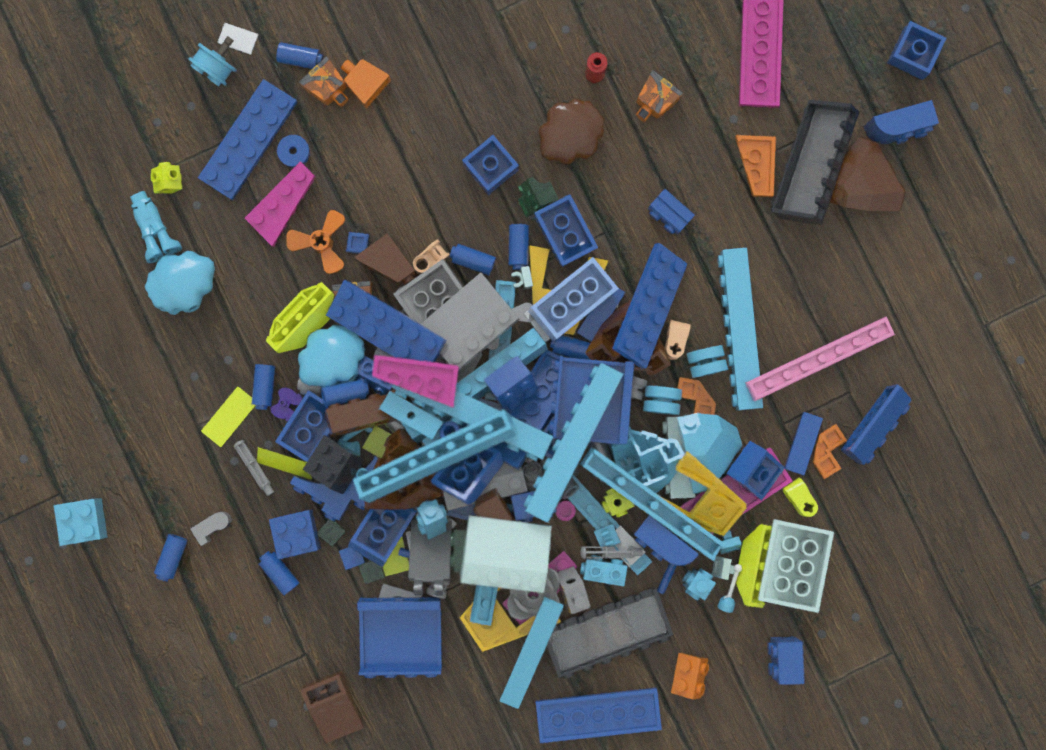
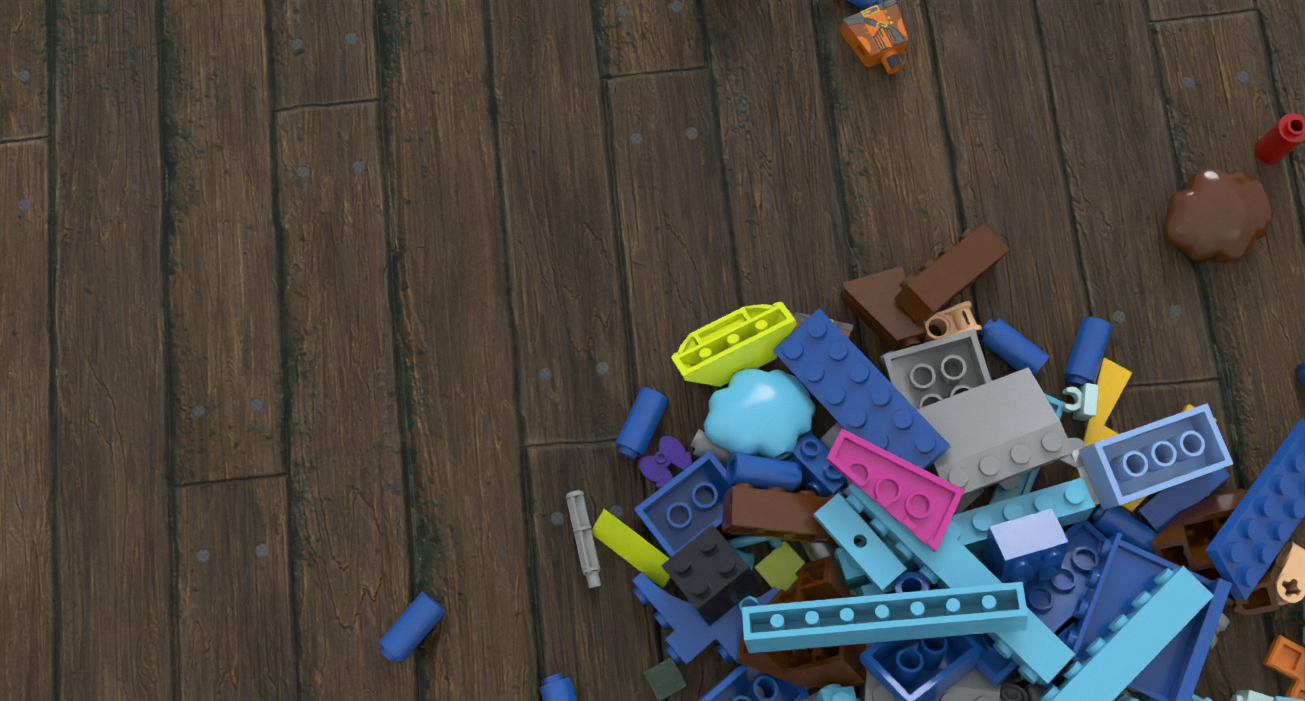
camera: 25 degrees right, 10 degrees down
(80, 521) = (301, 524): medium azure brick -> none
(151, 226) = (564, 145): medium azure piece -> none
(166, 178) = (609, 86): neon yellow brick -> none
(180, 282) = (577, 233): medium azure piece -> none
(204, 529) = (488, 601): light grey leg -> none
(228, 417) = (573, 450): neon yellow sticker -> none
(247, 139) = (740, 75): blue plate -> none
(280, 204) = (750, 179): dark pink wing -> none
(288, 143) = (804, 99): blue piece -> none
(294, 534) = (610, 661): blue brick -> none
(299, 241) = (768, 234): orange piece -> none
(357, 242) = (848, 266): blue tile -> none
(365, 80) = (935, 50): orange torso -> none
(418, 228) = (950, 274): none -> reddish brown brick
(490, 164) = (1083, 222): blue brick -> none
(536, 196) = (1136, 289): clear green brick -> none
(565, 230) = (1168, 352): blue brick -> none
(662, 400) = (1248, 660): medium azure wheel -> none

